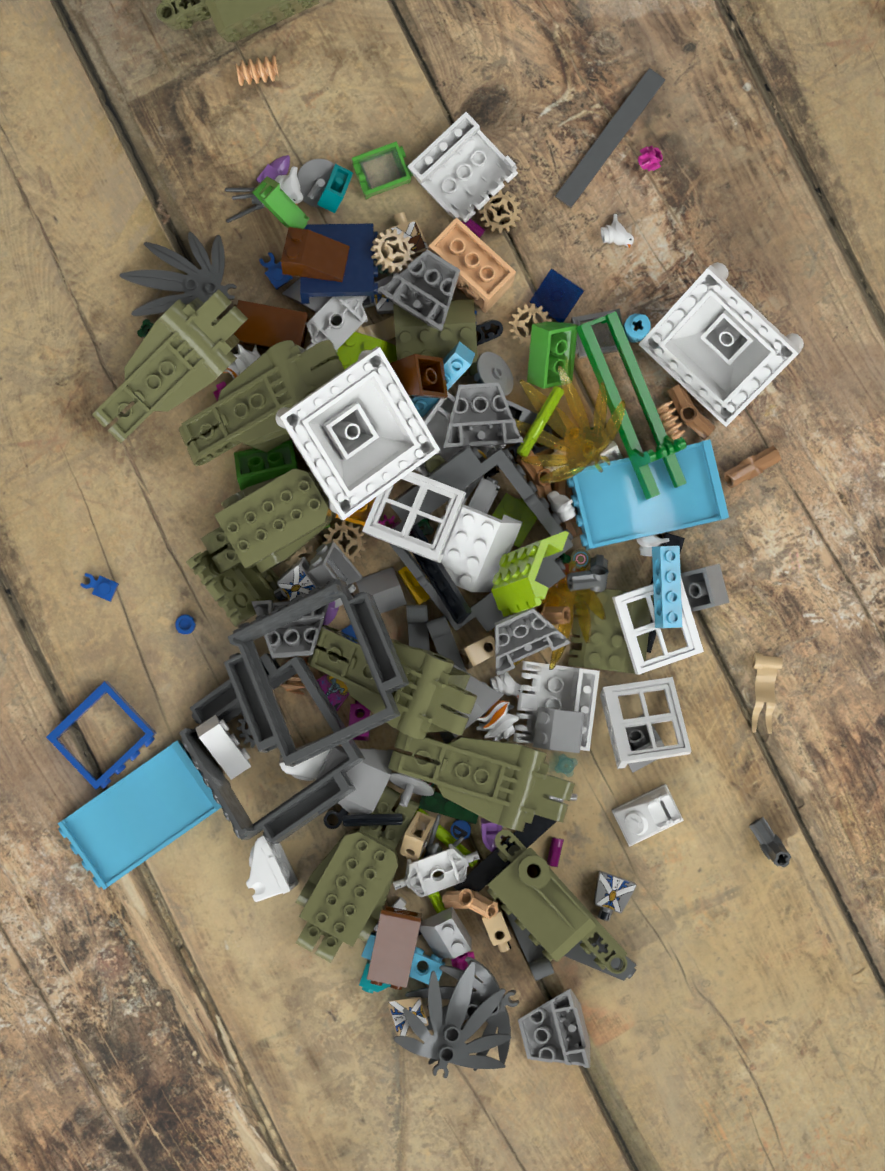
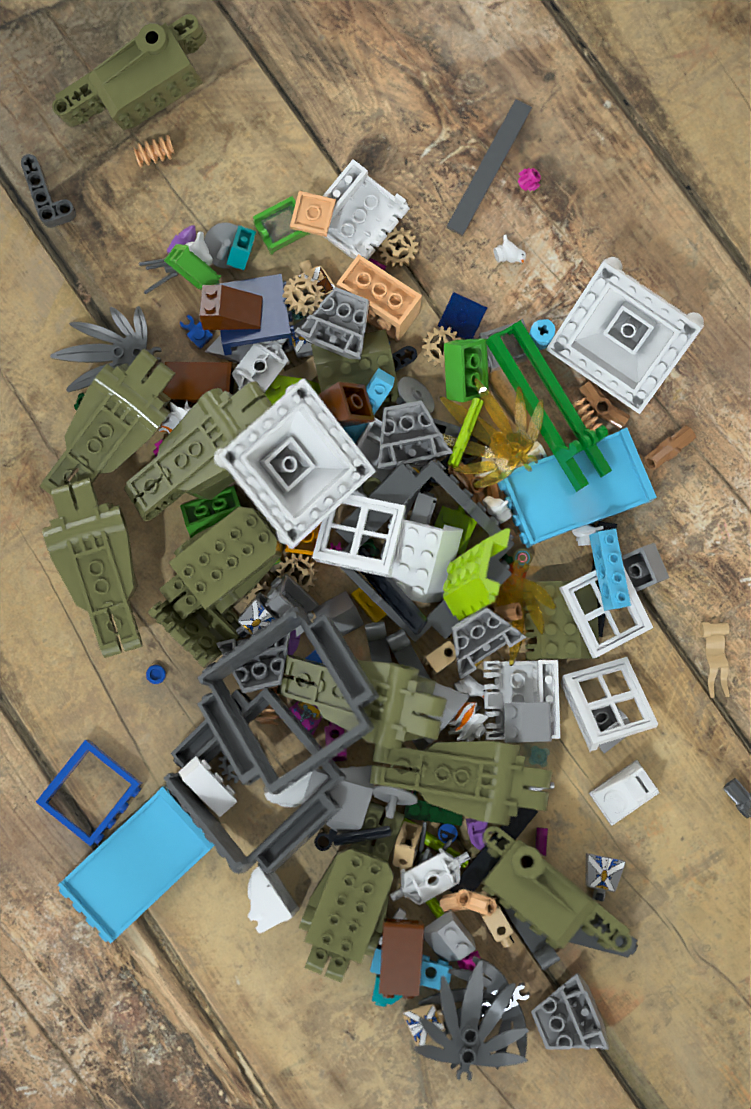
camera: 15 degrees left, 5 degrees down
(102, 587) = (72, 650): blue plate -> none
(134, 95) = (42, 190): none -> dark grey beam
(139, 503) = (95, 563): none -> olive piece
(415, 165) = (312, 213): none -> light nougat tile
(594, 579) = (538, 573): dark grey piece -> none

